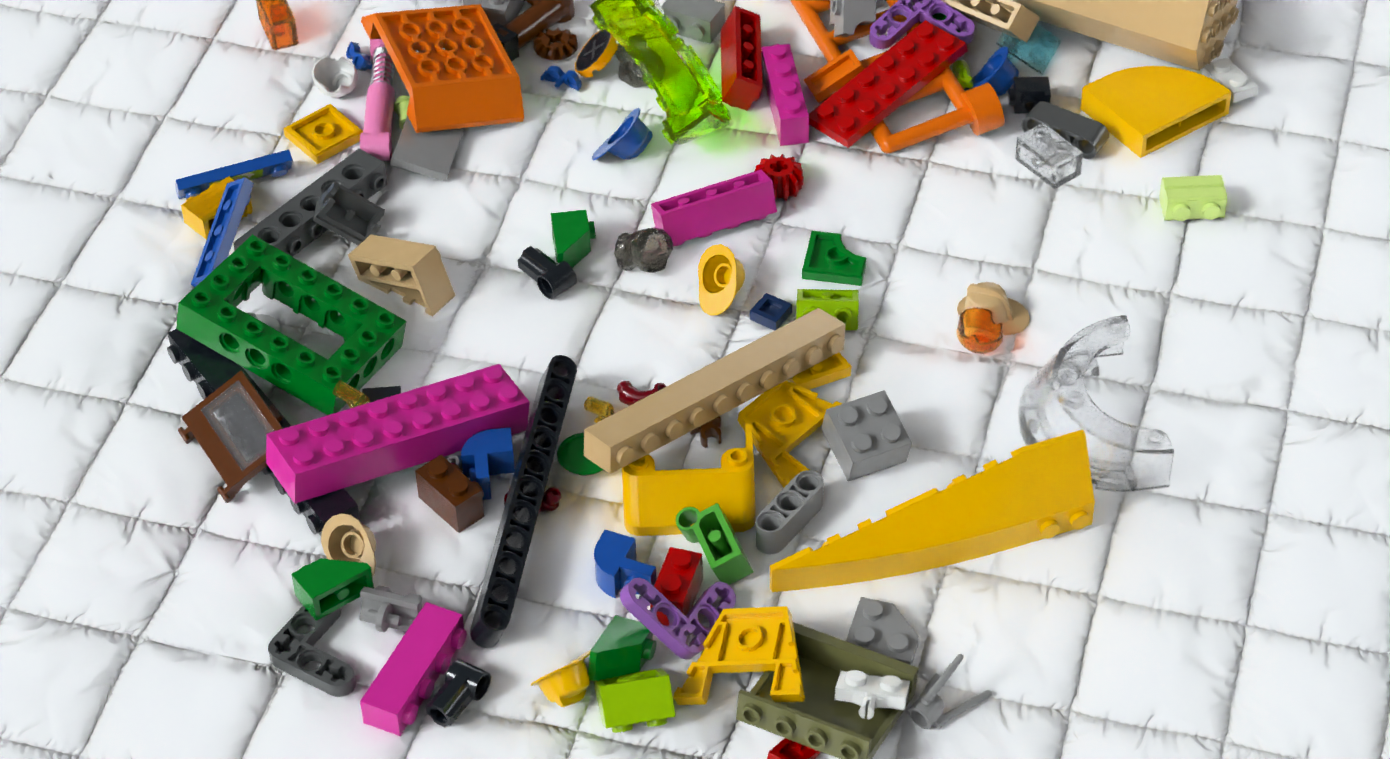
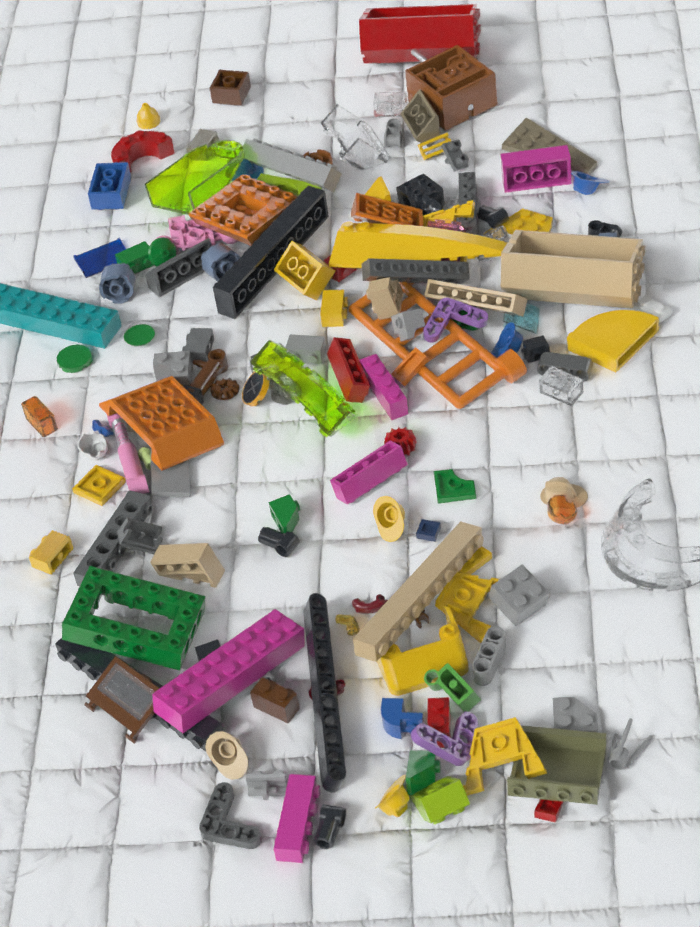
camera: 10 degrees left, 0 degrees up
(224, 227) = (63, 568): blue plate -> none
(272, 164) = (76, 514): blue plate -> none
(330, 584) = (224, 779): green slope -> none
(350, 395) = (192, 654): clear yellow arm -> none
(488, 454) = (290, 668): blue brick -> none
(555, 74) = (234, 409): blue piece -> none
(572, 458) = (344, 653): green piece -> none
(628, 139) = (295, 440): blue piece -> none
(643, 250) = (335, 511): clear smoke hair -> none
(838, 303) = (469, 514): lime bracket -> none
(871, 691) = (583, 755): white plate -> none
(886, 83) = (445, 364): red plate -> none
(962, 72) = (487, 343): lime piece -> none
(1007, 505) = (620, 619): yellow wedge -> none
(1193, 197) = (658, 391): yellowish green brick -> none

